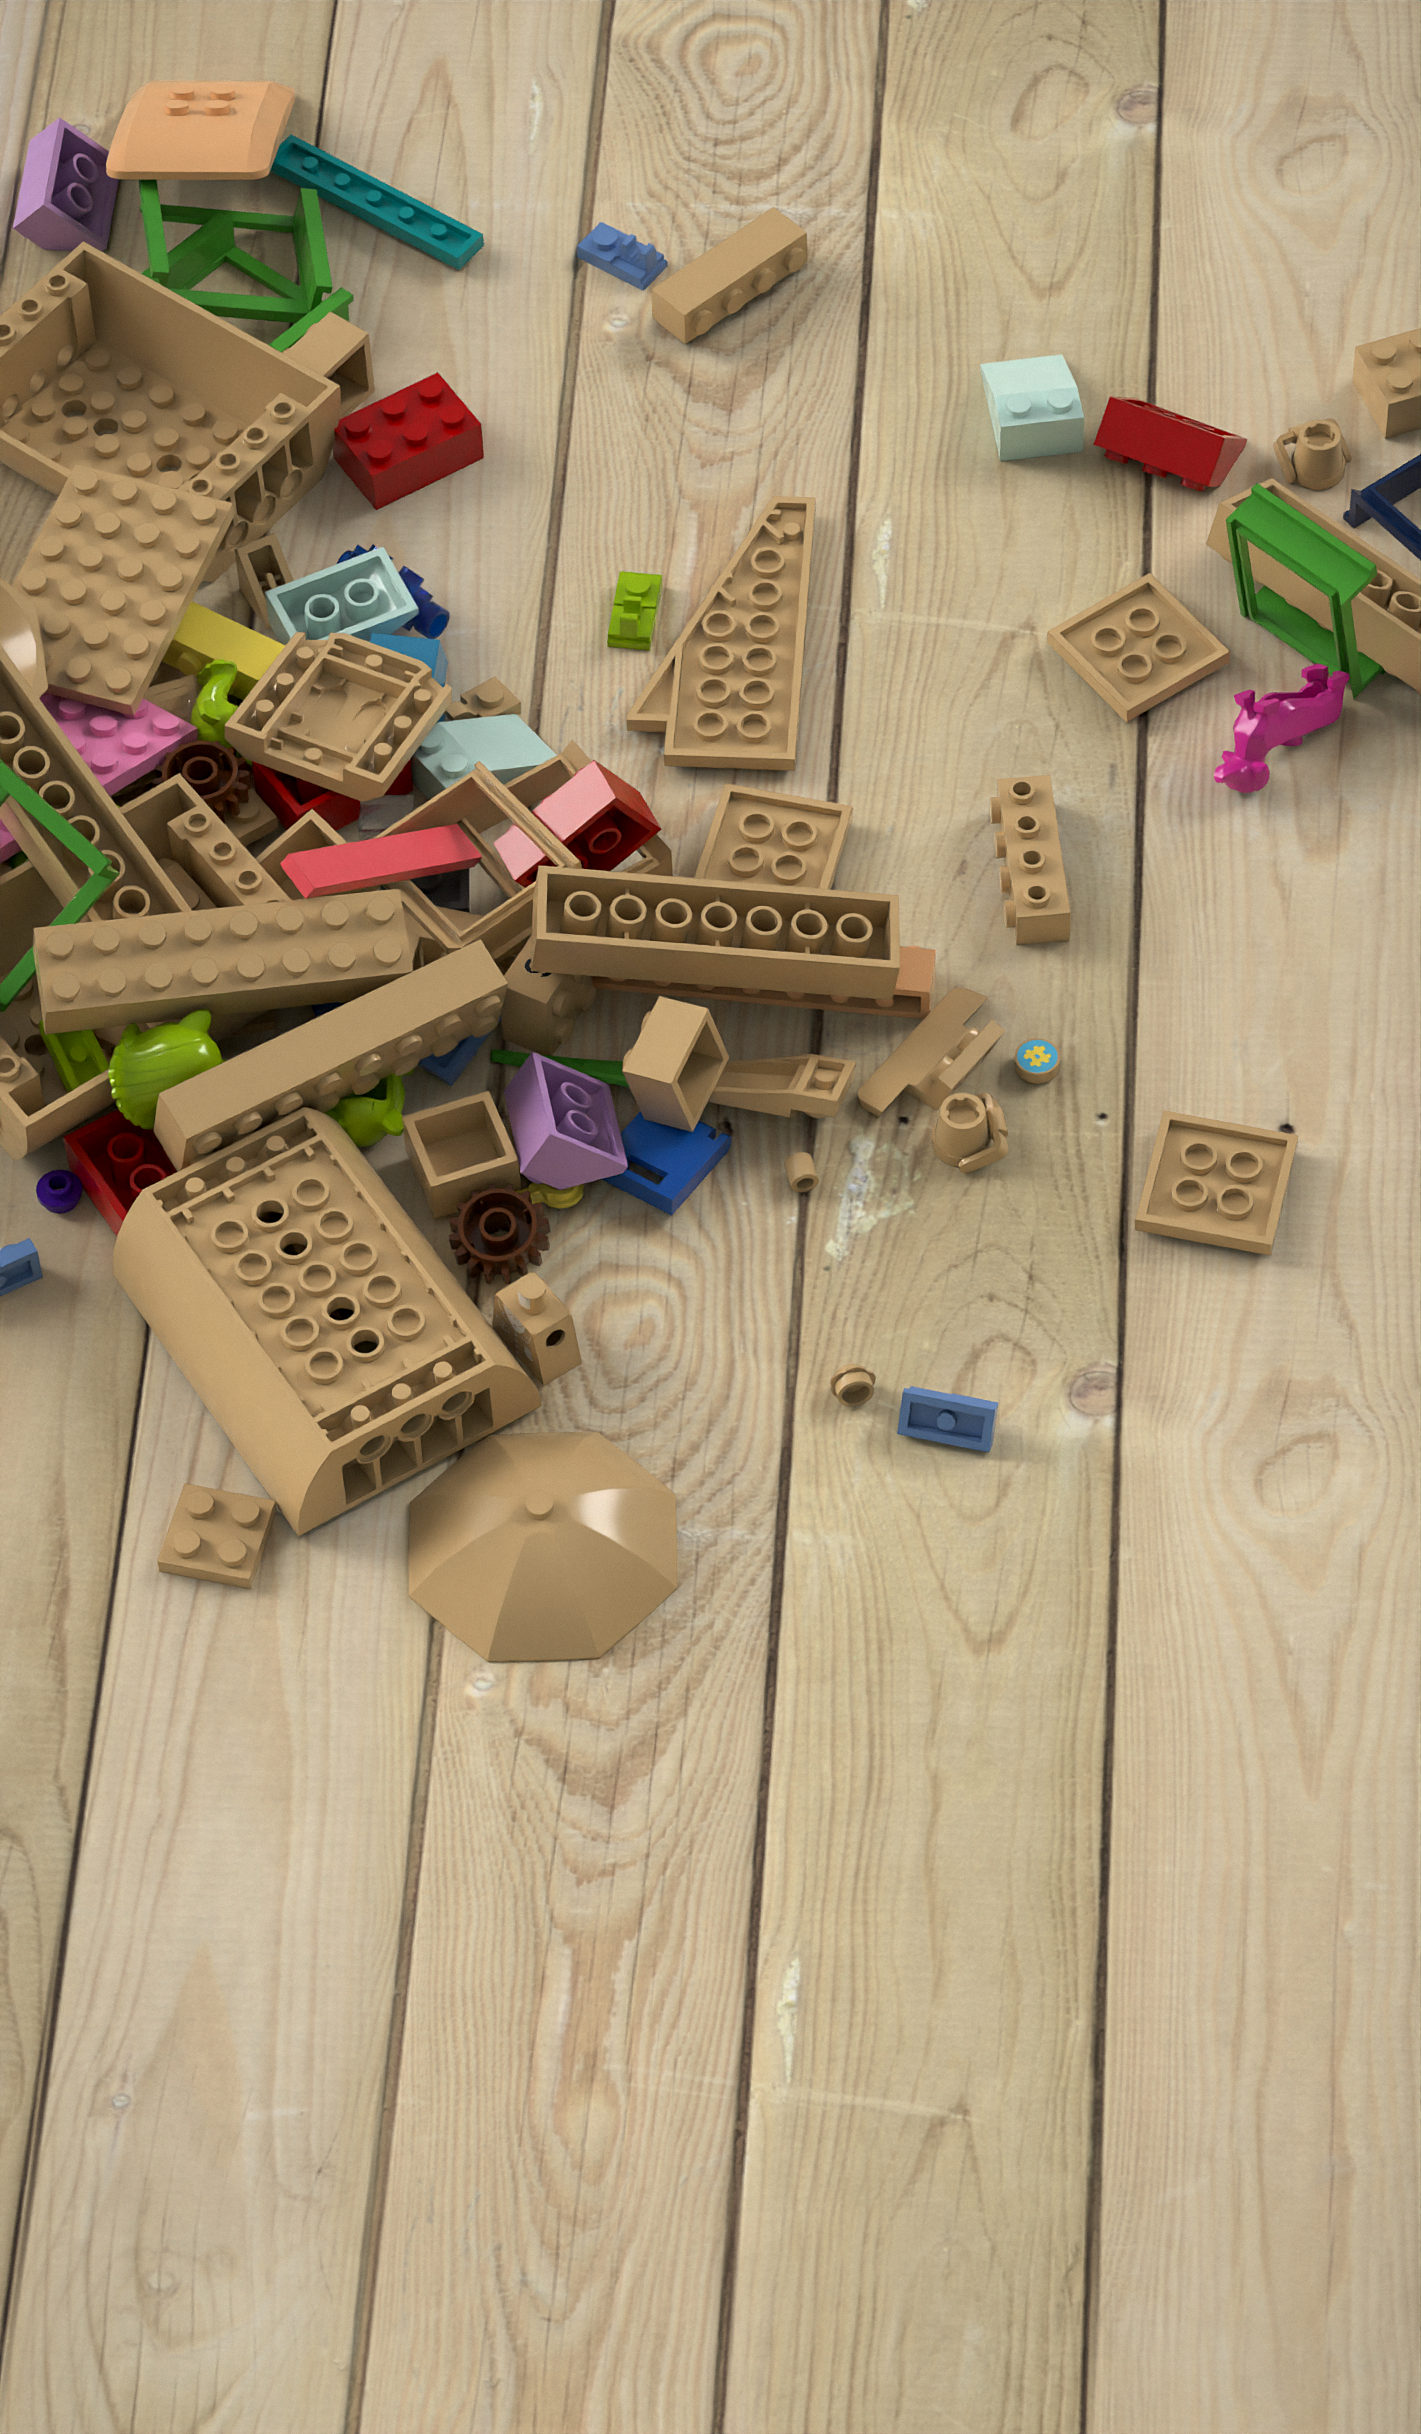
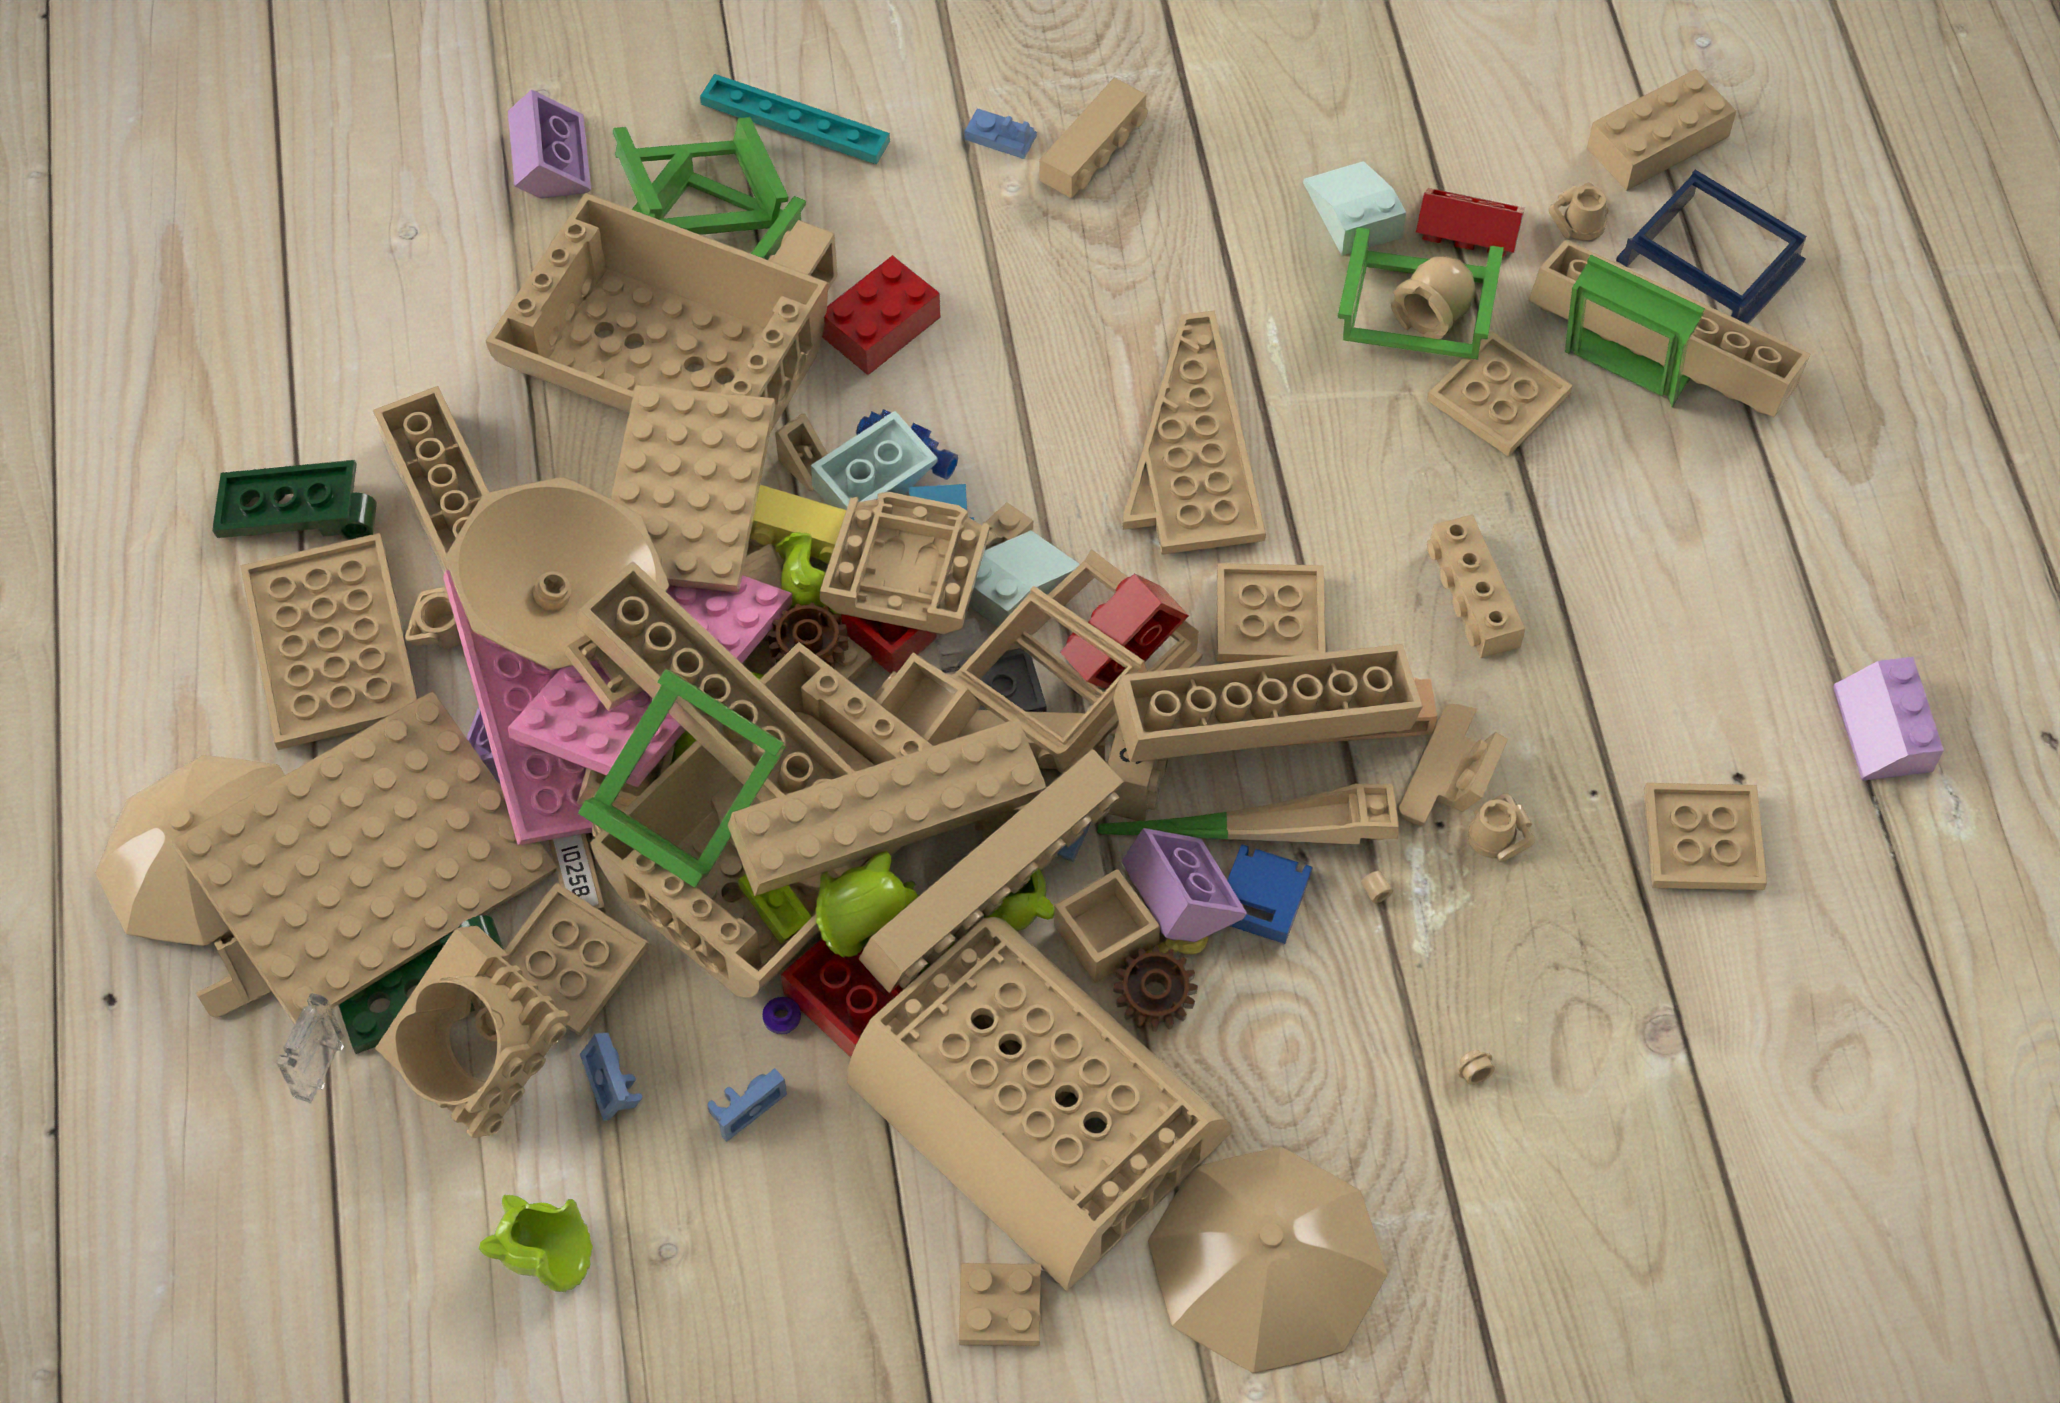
camera: 15 degrees left, 5 degrees up
(200, 130) = (647, 83): light nougat wedge -> none
(380, 860) = (984, 690): coral tile -> none
(525, 1318) = (1208, 1065): tan torso -> none
(634, 610) = (1098, 427): lime plate -> none
(675, 1063) = (1263, 819): tan piece -> none
(948, 1418) = (1562, 1083): medium blue plate -> none
(1002, 482) = (1349, 304): none -> bright green piece
(1037, 1061) = (1530, 756): tile -> none
(1089, 521) = (1434, 296): none -> tan tile
(1276, 721) = (1630, 440): dark pink animal -> none

